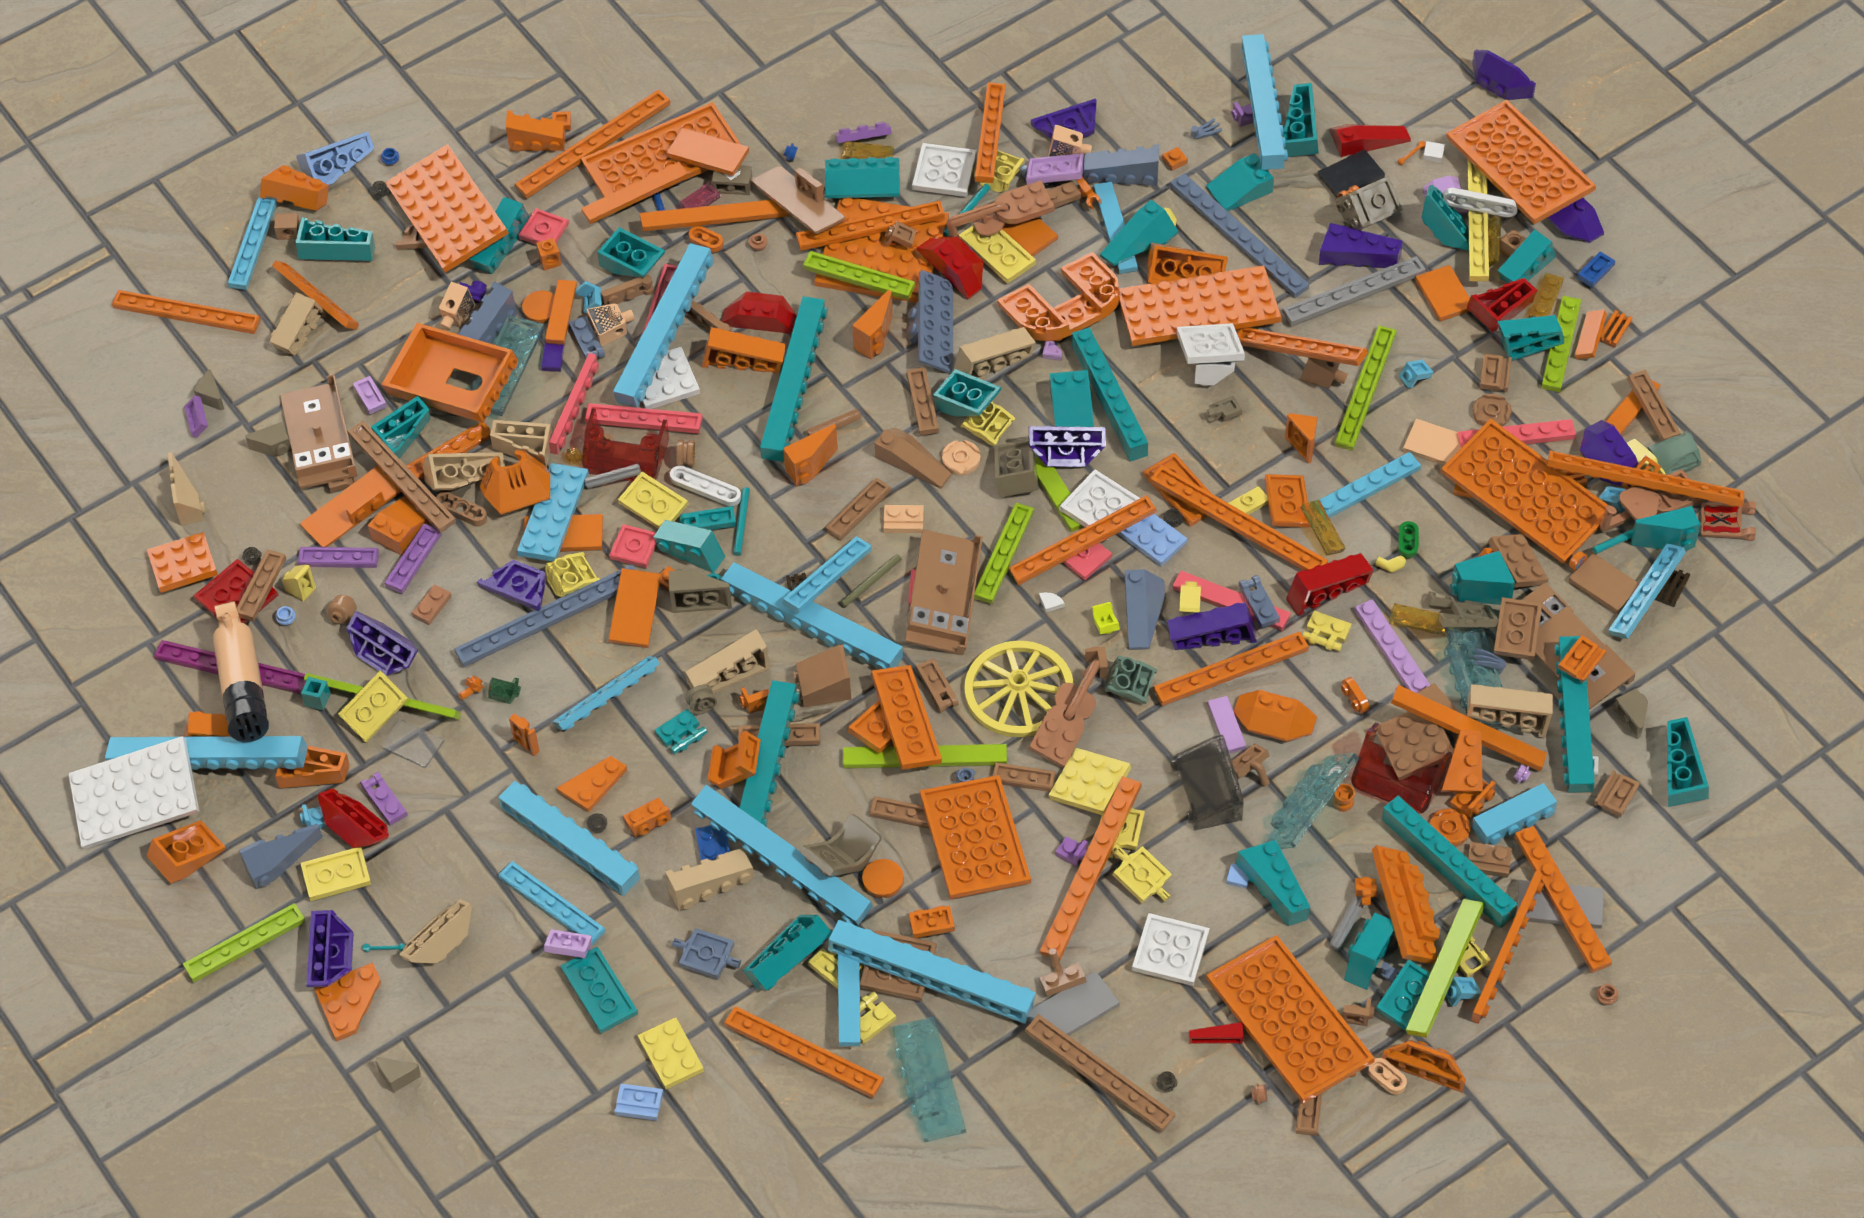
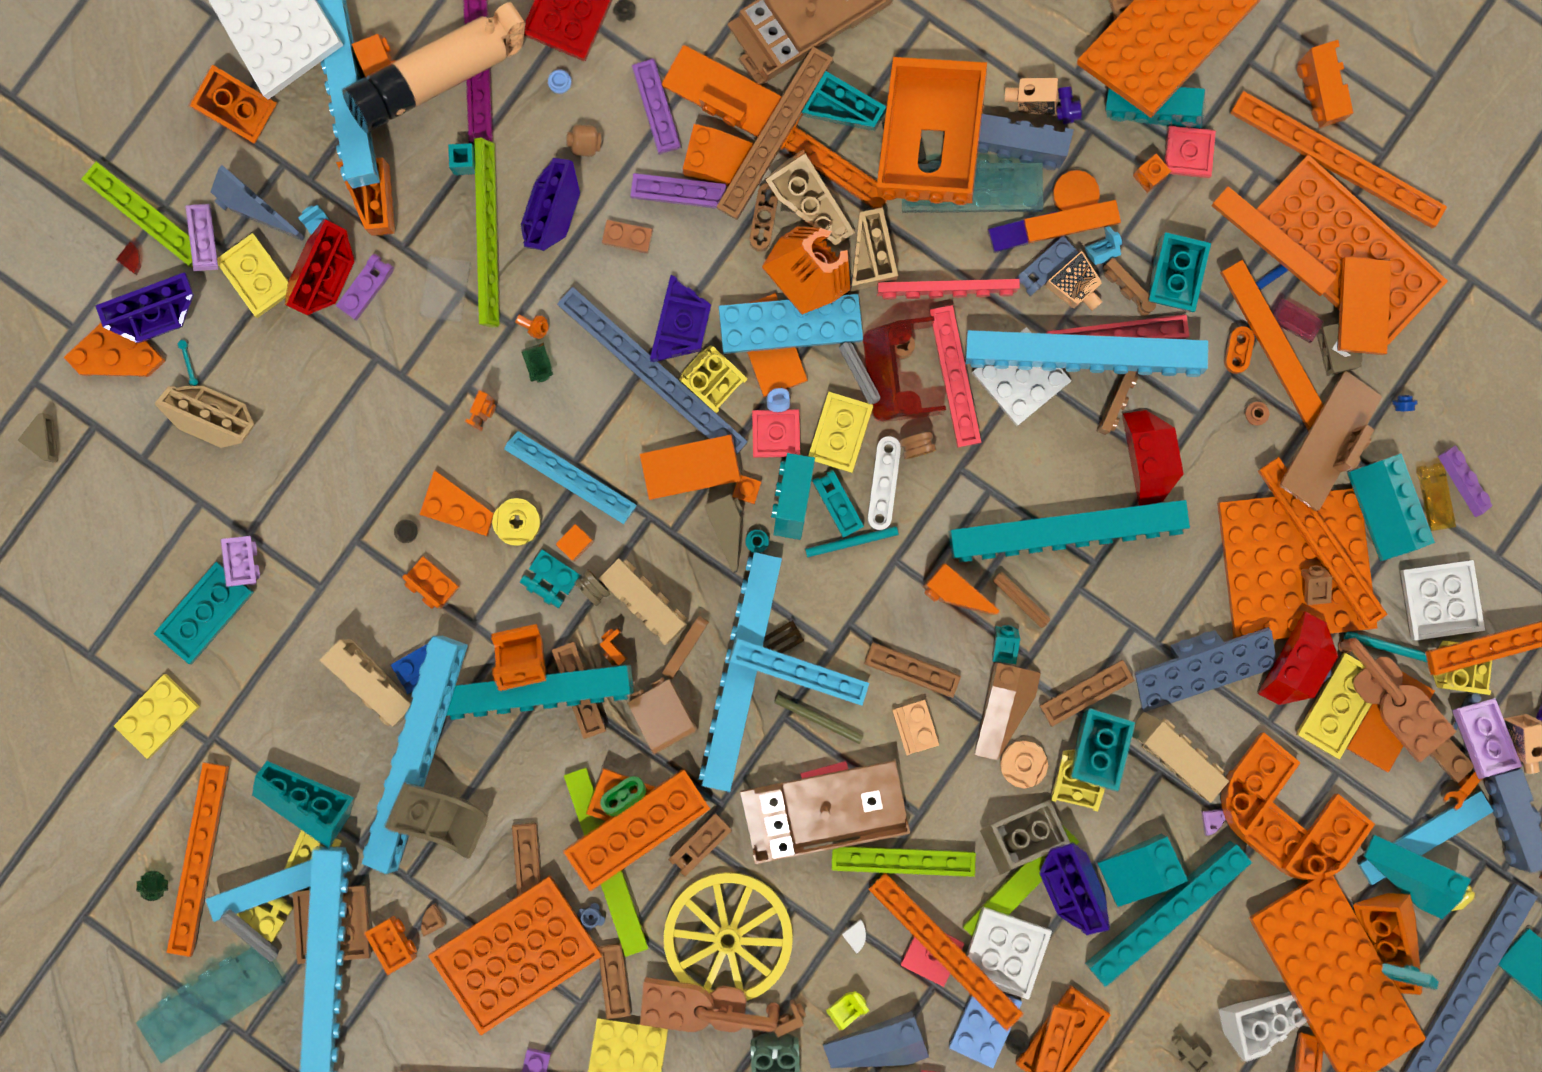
camera: 70 degrees right, 30 degrees up
(260, 584) = (579, 37): medium nougat plate -> none
(276, 965) = (130, 258): none -> clear red tile
(286, 900) = (201, 237): none -> lavender tile
(299, 582) = (601, 77): light yellow slope -> none
(369, 395) = (883, 48): lavender plate -> none
(373, 706) = (465, 230): light yellow tile -> none
(550, 902) = (295, 520): medium azure tile -> none
(564, 117) = (1362, 108): orange plate -> none
(569, 837) = (375, 508): medium azure brick -> none
(574, 455) = (877, 316): clear yellow plate -> none
(610, 536) = (778, 400): none -> light blue tile
(620, 751) = (507, 531): none -> light yellow plate
(639, 1102) = (86, 705): light blue plate -> none
(659, 700) = (574, 542): none -> orange panel
(706, 953) = (282, 711): sand blue plate -> none
(742, 351) = (1084, 458): orange wedge -> none
(778, 653) = (685, 647): none -> medium nougat beam
(812, 1090) = (152, 886): none -> clear green gear
(858, 275) = (1239, 556): lime plate -> none
(863, 440) = (1006, 644): none -> teal bracket
(873, 326) = (1160, 601): orange slope -> none
(875, 719) = (622, 794): none -> green plate
(882, 1022) = (249, 935): none -> light grey axle
(883, 878) = (436, 868): orange tile -> none
(924, 894) = (432, 920): none -> medium nougat tile
(1209, 254) = (1410, 975): none -> teal plate
(1210, 343) = (1274, 1019): white plate -> none

